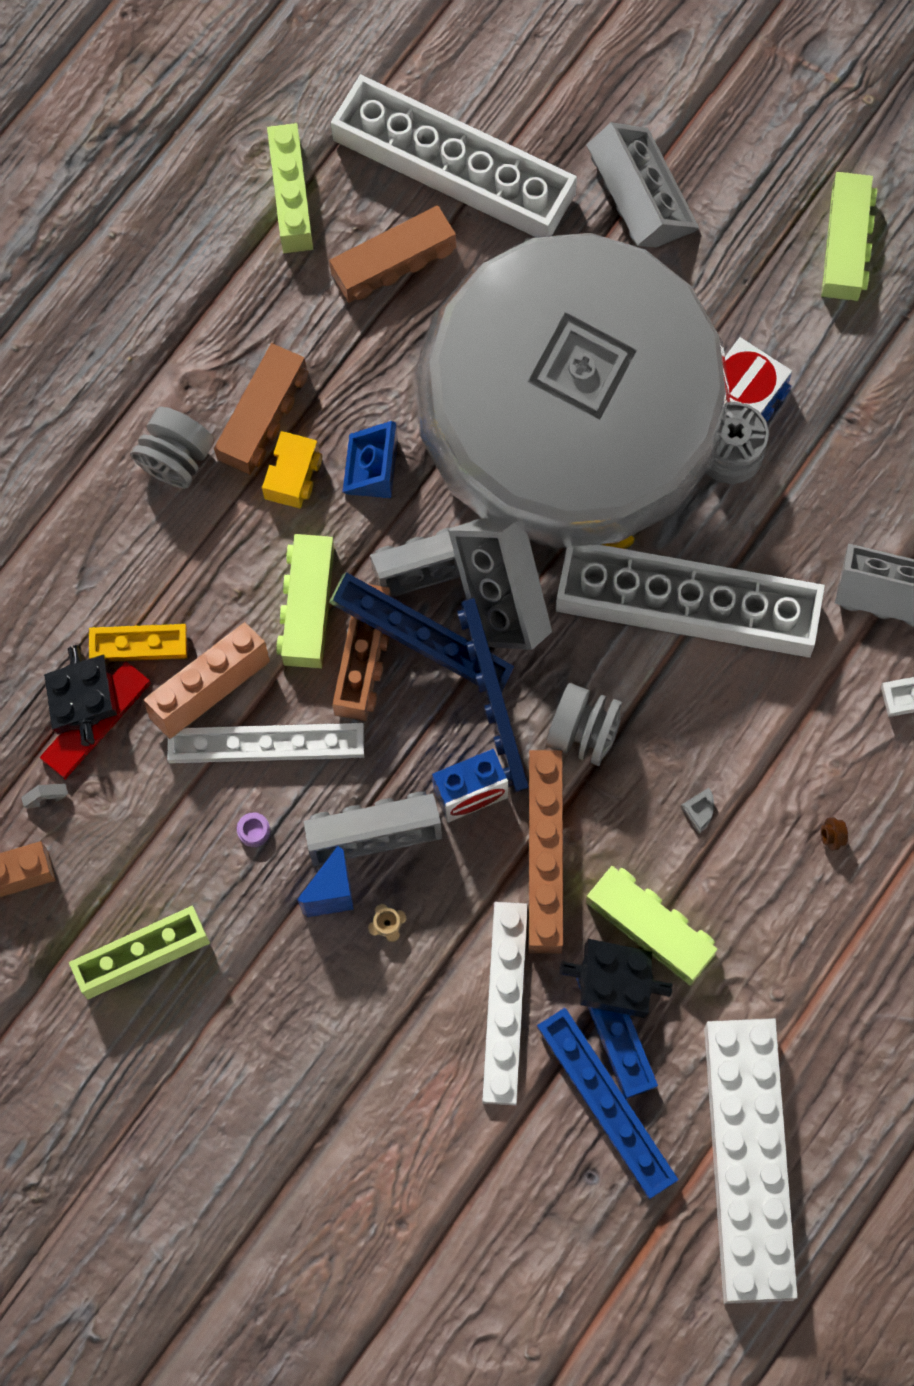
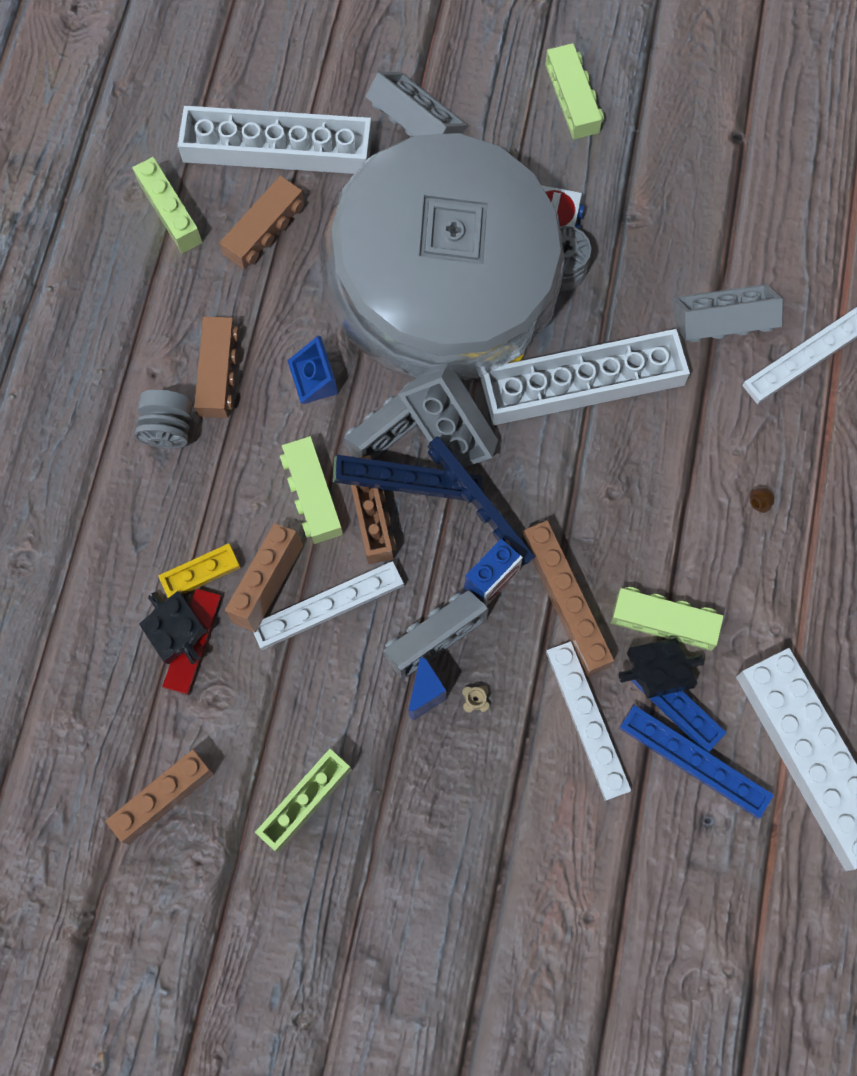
camera: 25 degrees left, 0 degrees up
(43, 792) = (177, 711): light grey tile -> none
(253, 829) = (346, 672): lavender tile -> none
(290, 478) = (257, 404): yellow brick -> none
(584, 724) = (553, 495): light grey wheel -> none
(699, 810) = (659, 523): light grey tile -> none

